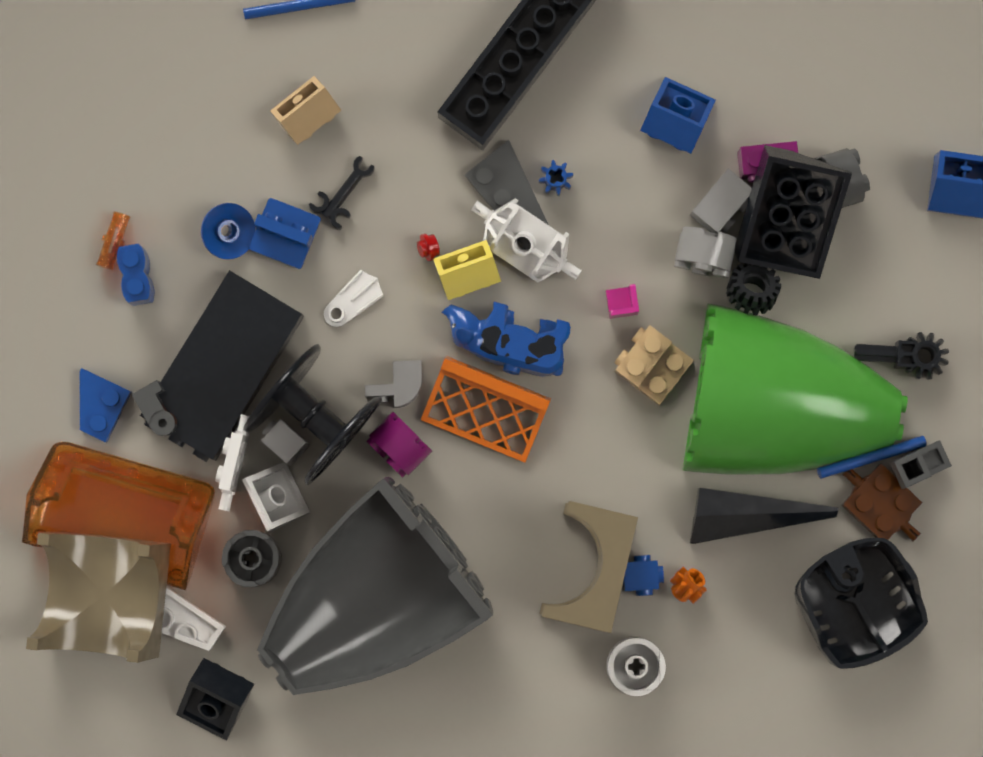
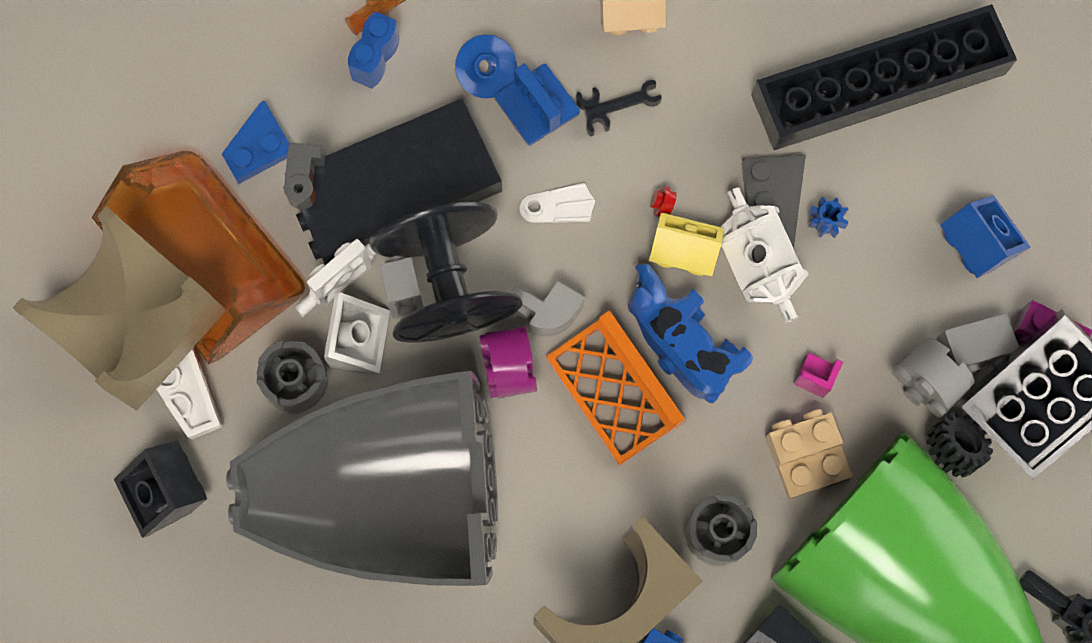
camera: 30 degrees right, 10 degrees down
(633, 447) = (737, 520): none -> dark grey brick

